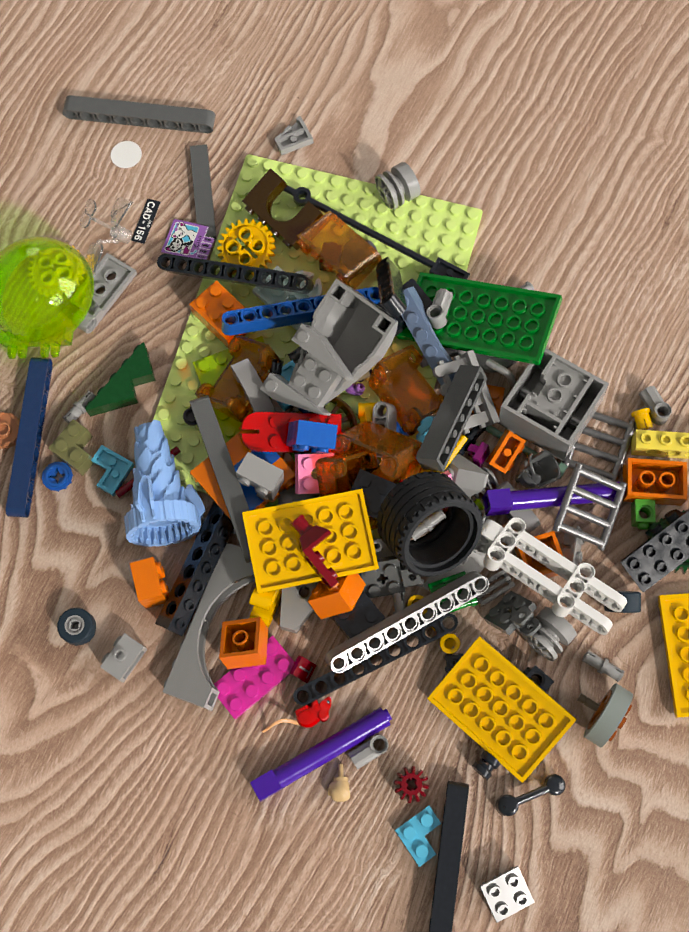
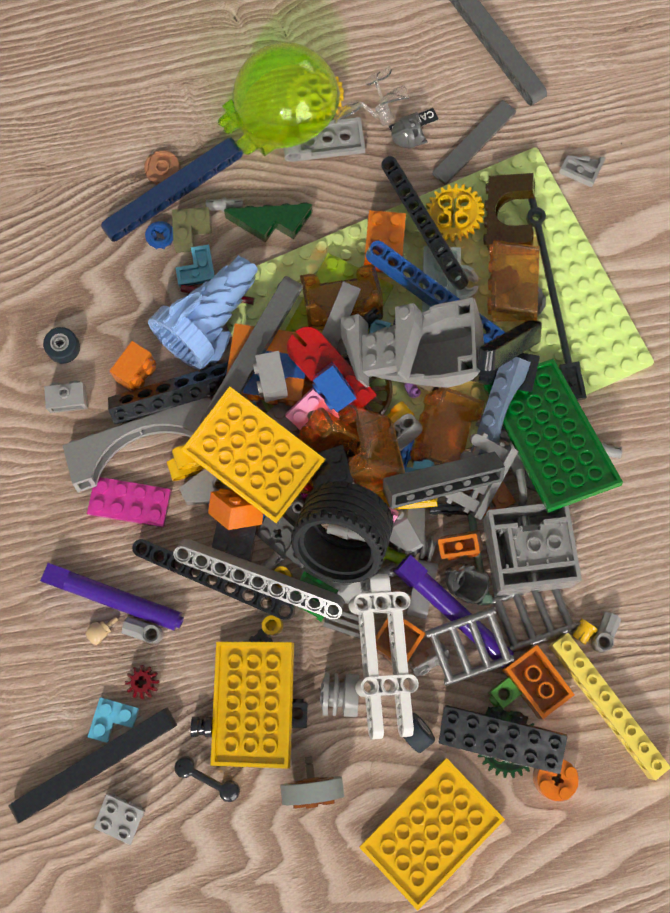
camera: 45 degrees right, 5 degrees up
(126, 154) = (454, 61): white sticker -> none
(150, 229) = (408, 132): none -> dark grey helmet
(188, 240) = (424, 166): sticker -> none
(243, 643) = (144, 472): orange brick -> none
(302, 669) = (163, 531): dark red tile -> none
(308, 715) = (132, 565): red animal -> none
(310, 538) = (246, 452): dark red plate -> none
(397, 185) = (609, 280): light grey wheel -> none
(439, 308) = (531, 397): light grey piece -> none
(479, 453) = (443, 526): magenta tile -> none
(519, 618) = (332, 662): dark grey plate -> none
(603, 665) = (353, 757): light grey pin -> none

